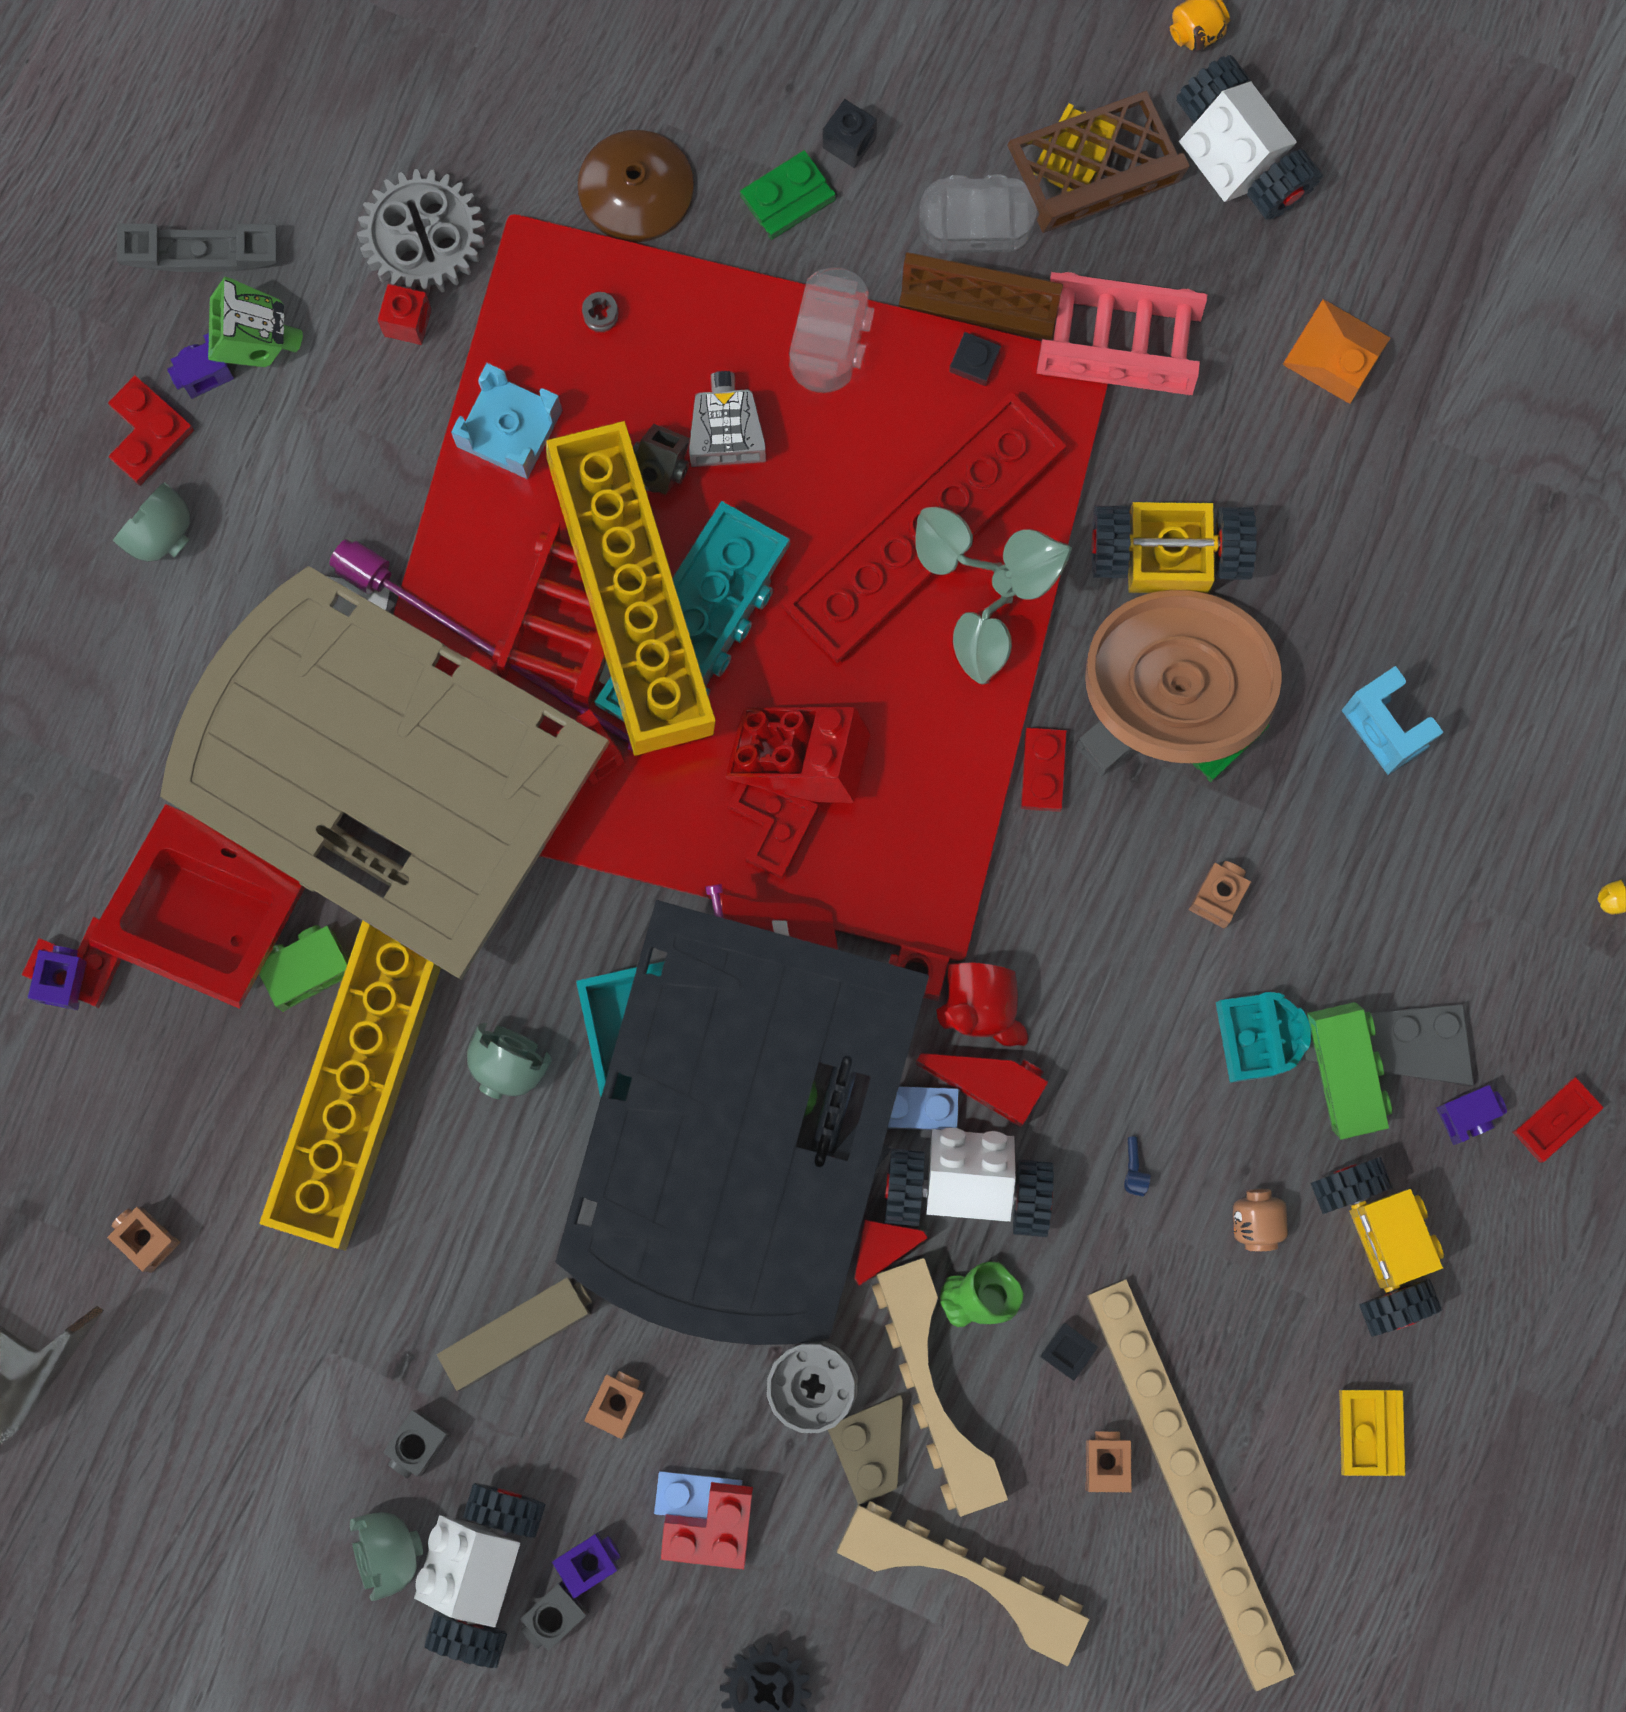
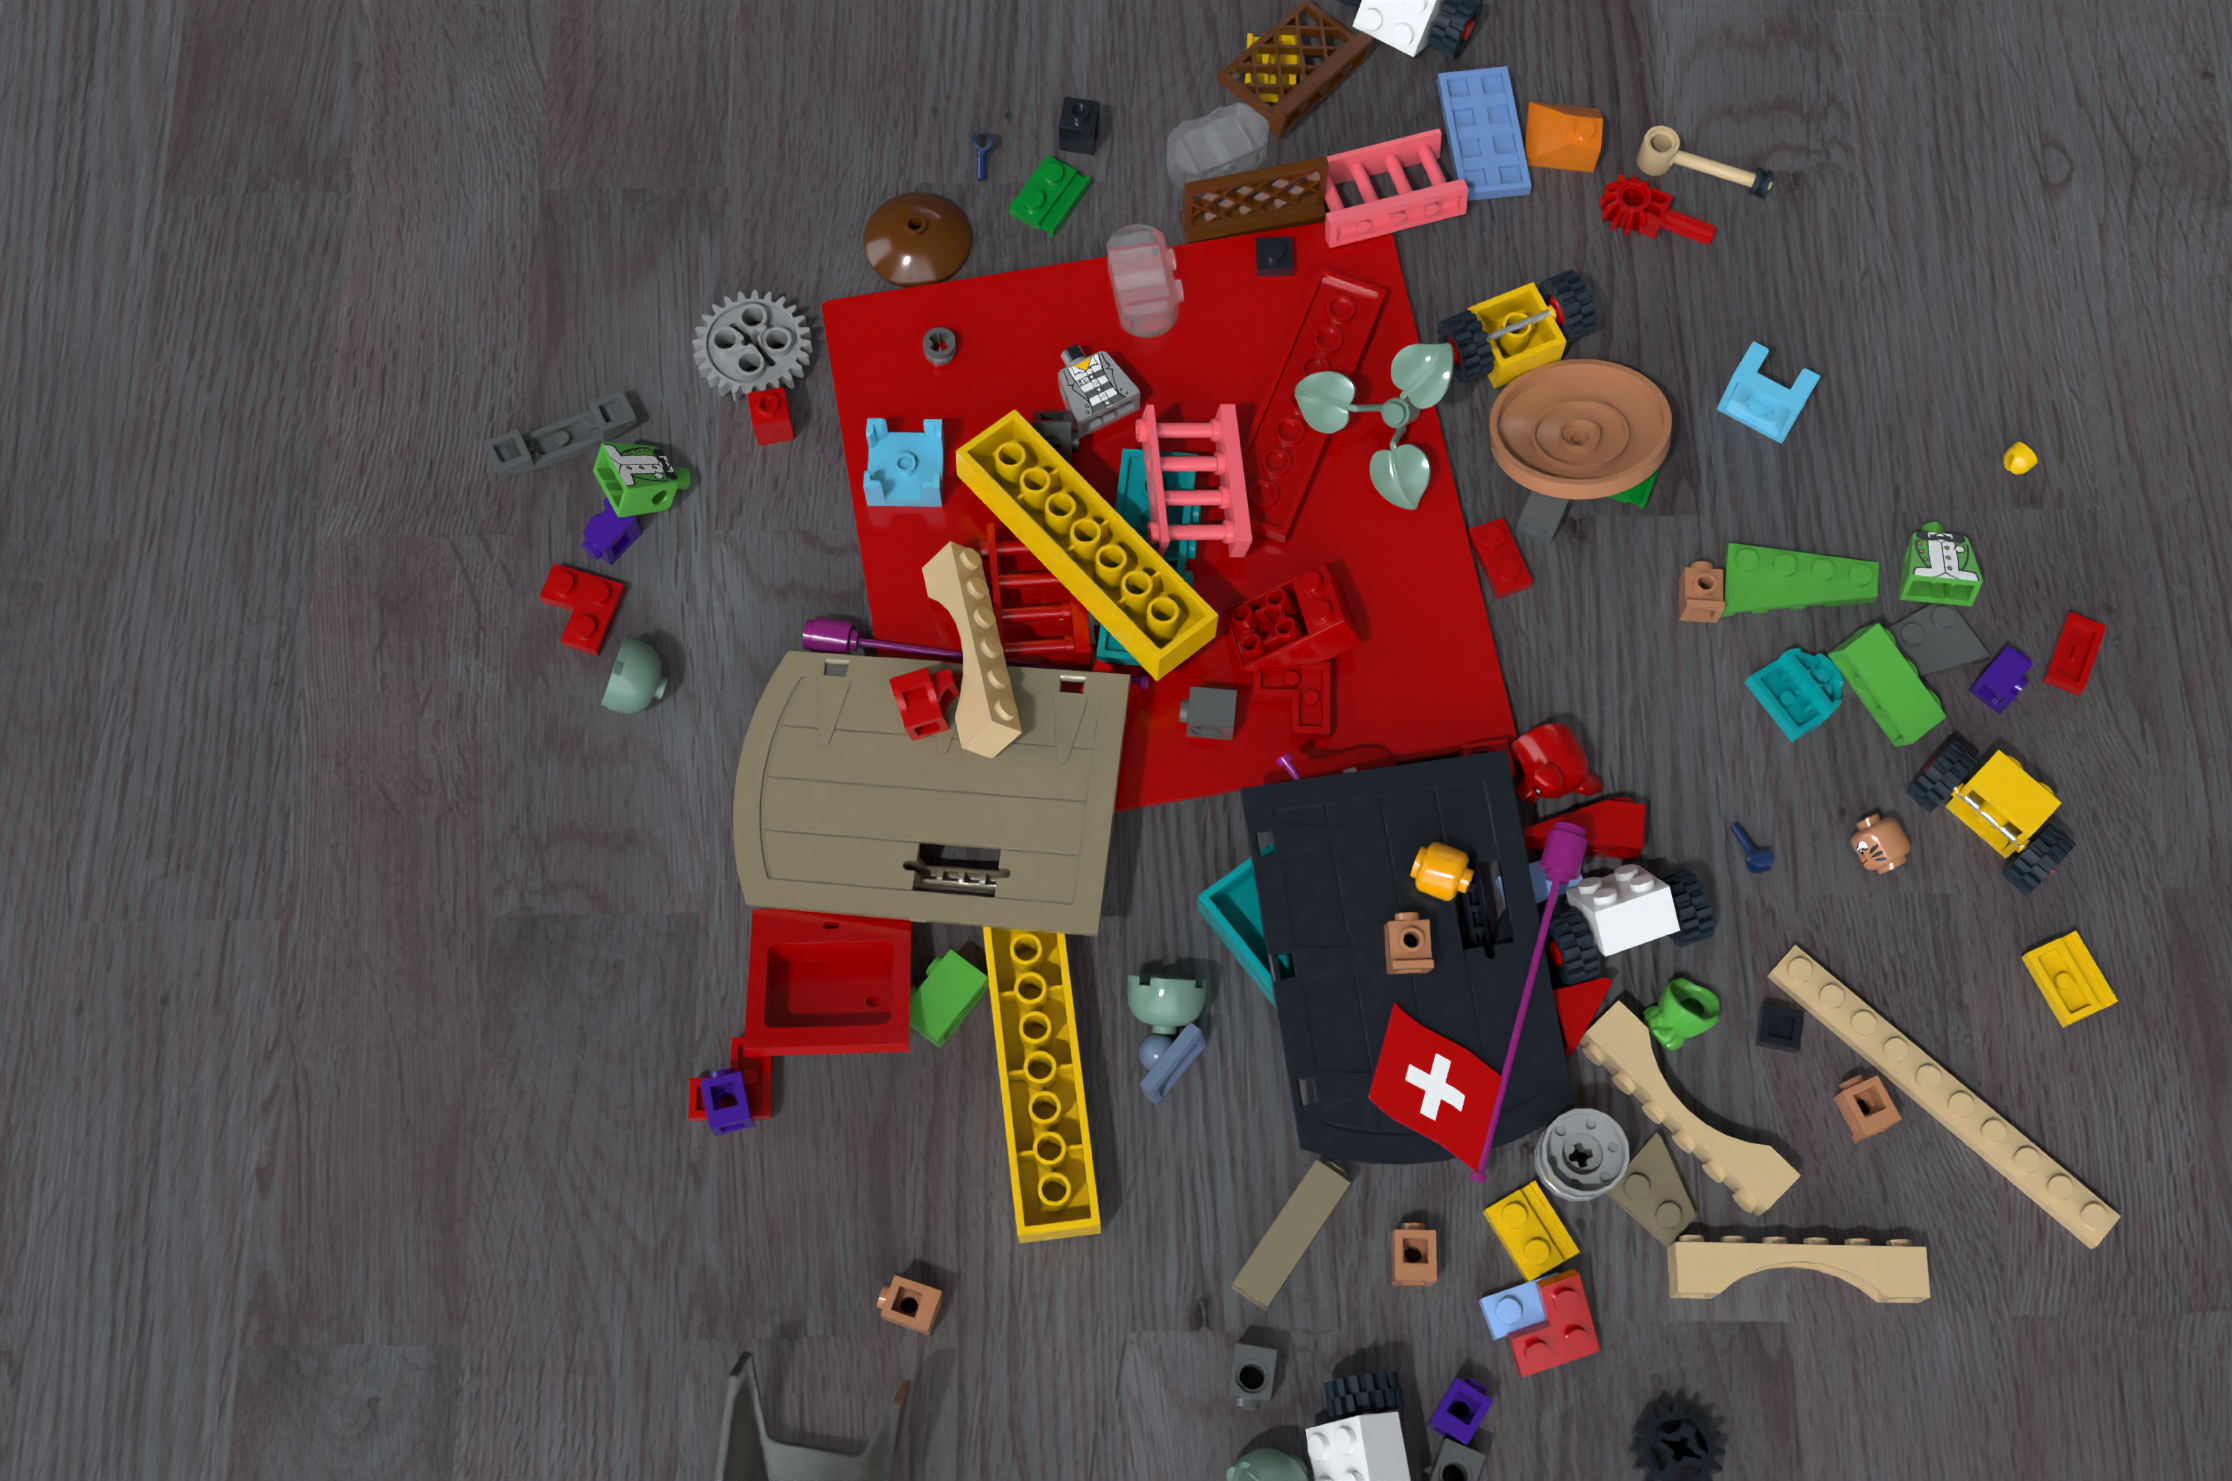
camera: 25 degrees left, 10 degrees down
(402, 679) = (924, 700): none -> red brick
(456, 710) = (986, 707): none -> tan arch
(481, 1120) = (1168, 1060): none -> sand blue tile
(678, 804) = (1209, 713): none -> dark grey brick
(712, 1263) = (1444, 1087): none -> red flag
(738, 1432) = (1531, 1232): none -> yellow plate
(740, 121) = (981, 156): none -> dark blue hand
(740, 1138) = (1404, 959): none -> nougat brick
(804, 1066) = (1441, 871): none -> light orange head
(808, 561) = (1225, 463): none -> coral fence
(1256, 315) = (1484, 132): none -> medium blue plate
(1309, 914) = (1778, 579): none -> bright green wing
(1382, 476) = (1648, 211): none -> red gear
(1436, 402) = (1668, 142): none -> tan piece
(1468, 974) = (1939, 568): none -> bright green torso

